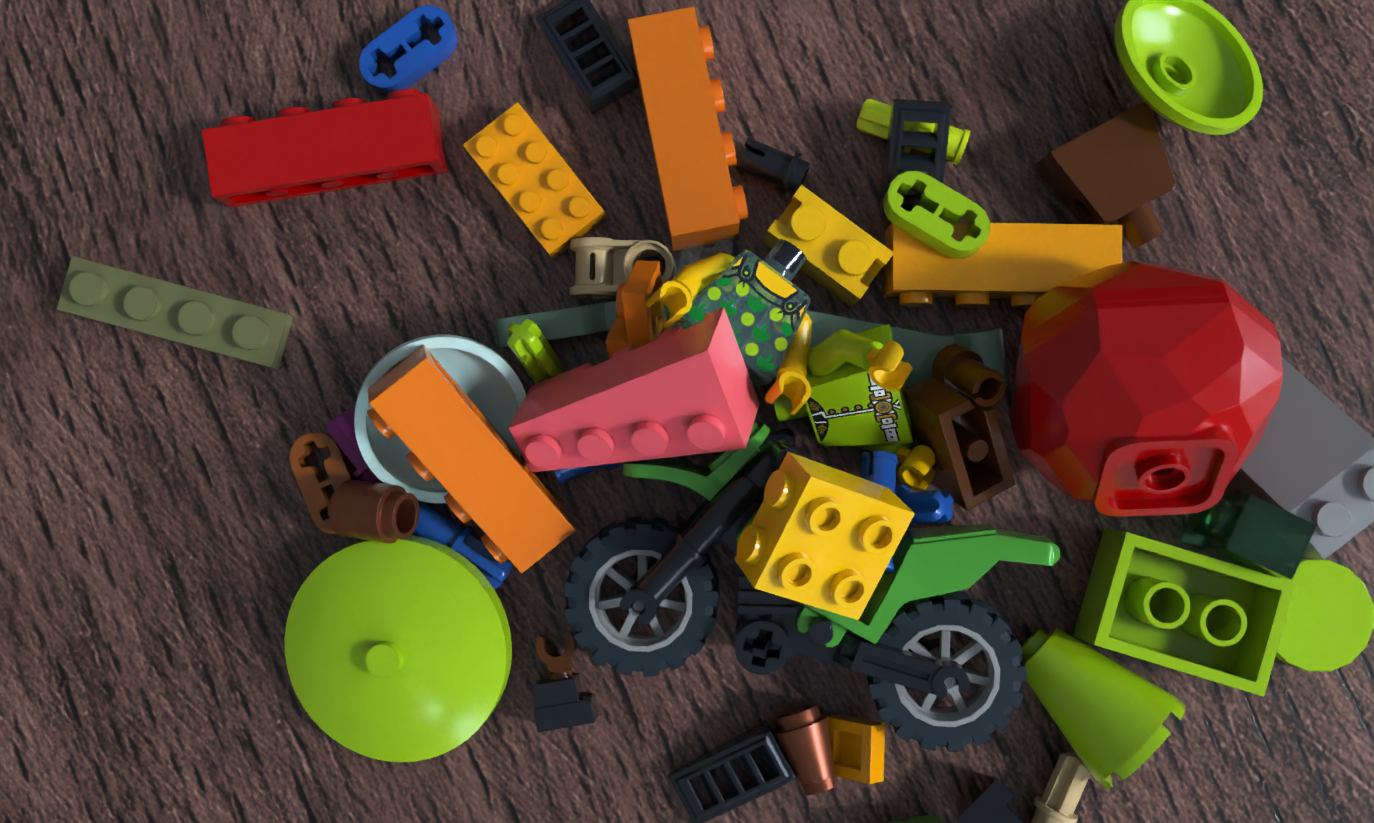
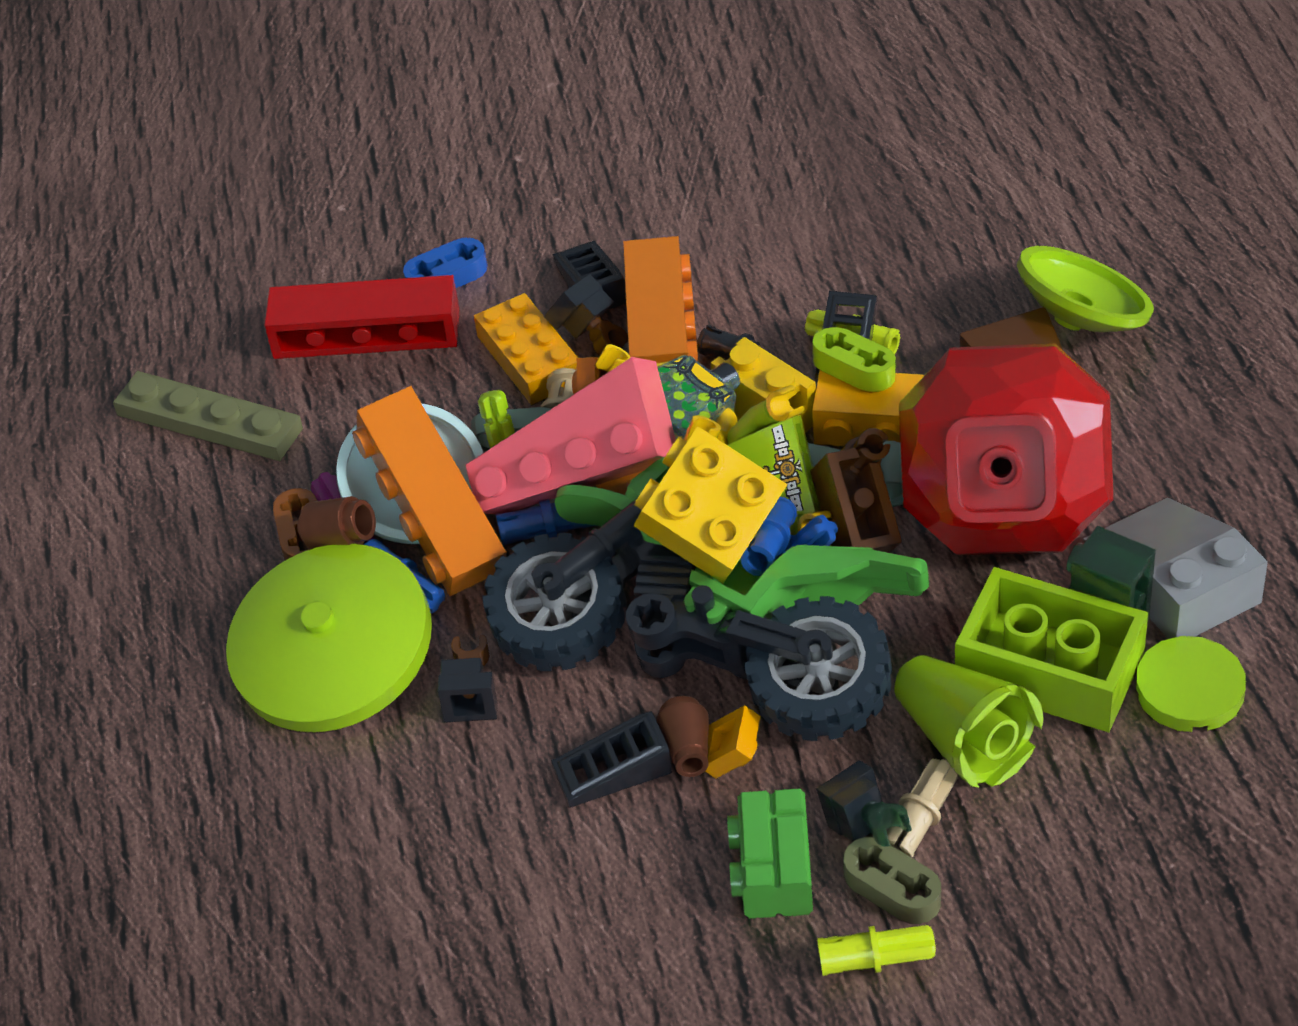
camera: 15 degrees right, 40 degrees down
(596, 133) = (581, 311): none -> black piece

